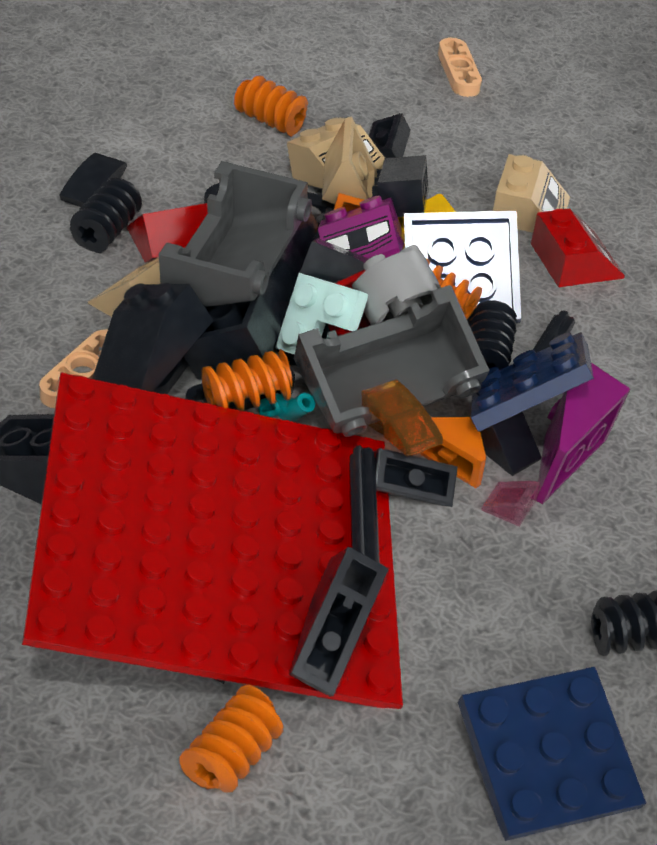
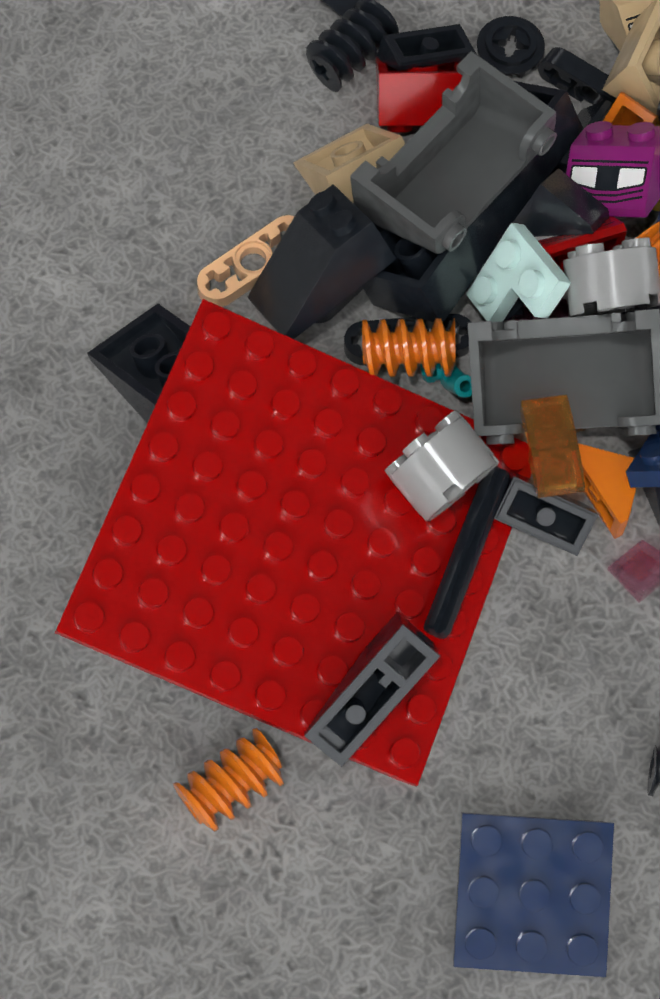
camera: 25 degrees right, 25 degrees up
(164, 201) = (424, 47): none -> black slope
(321, 442) = (441, 466): none -> light grey brick

